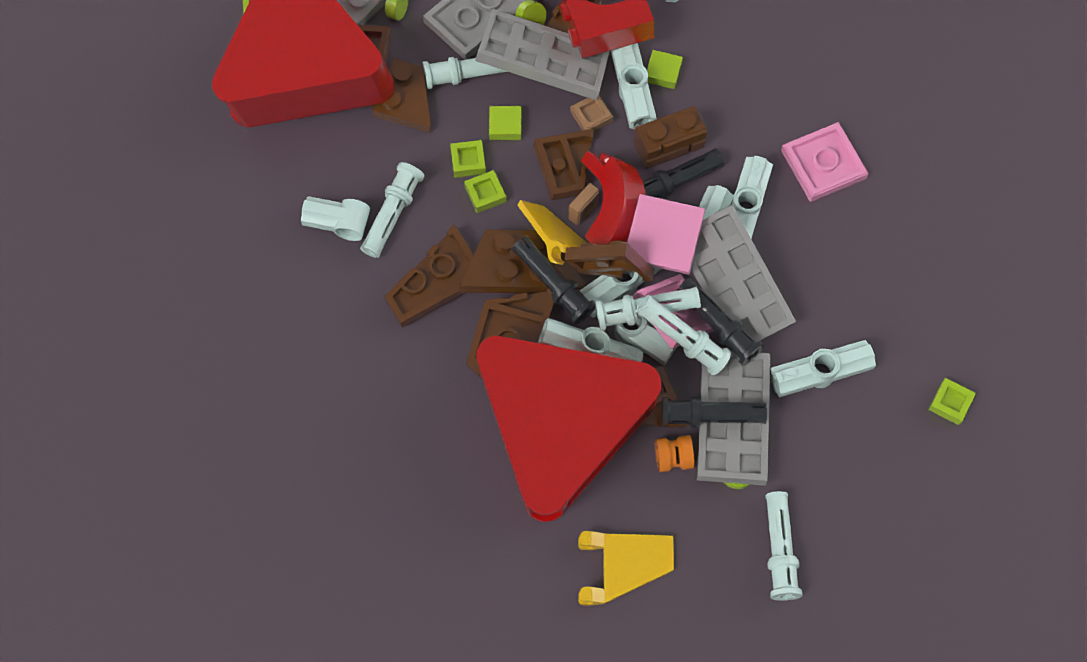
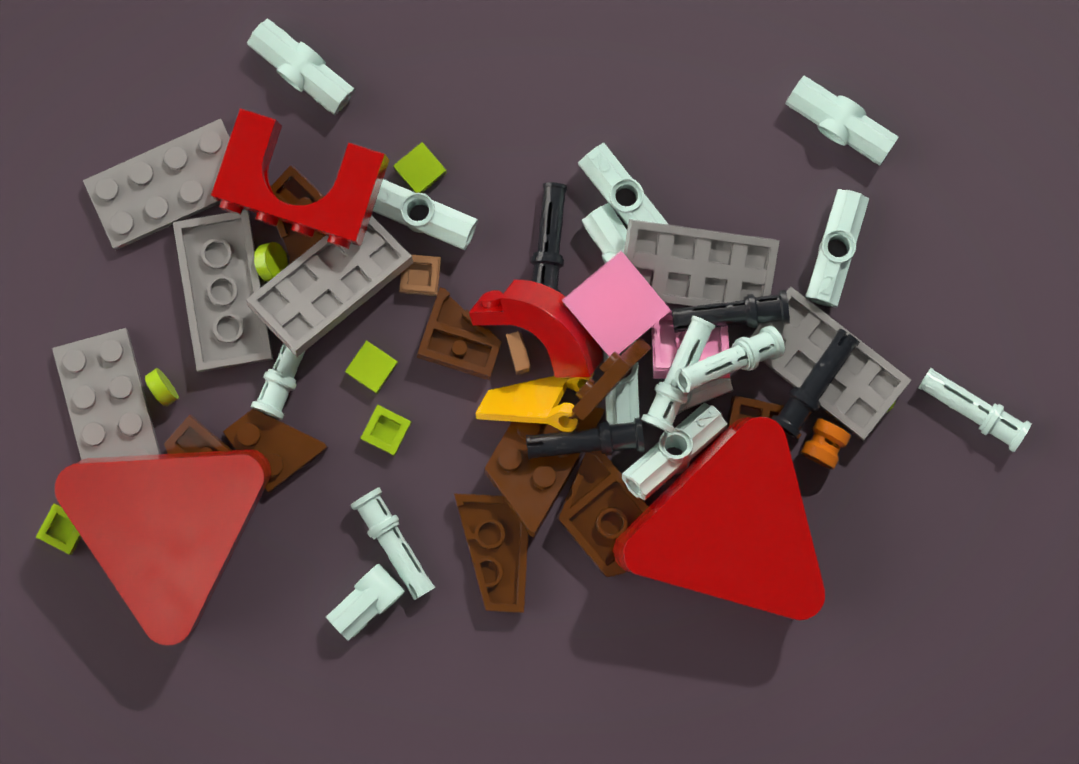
camera: 55 degrees left, 15 degrees up
(485, 191) = (434, 437): lime tile -> none
(627, 563) = (896, 557): yellow flag -> none
(669, 137) = (504, 219): reddish brown brick -> none
(824, 161) = (627, 86): bright pink tile -> none
(915, 313) = (841, 120): none -> light aqua piece
(952, 401) = (944, 151): lime tile -> none

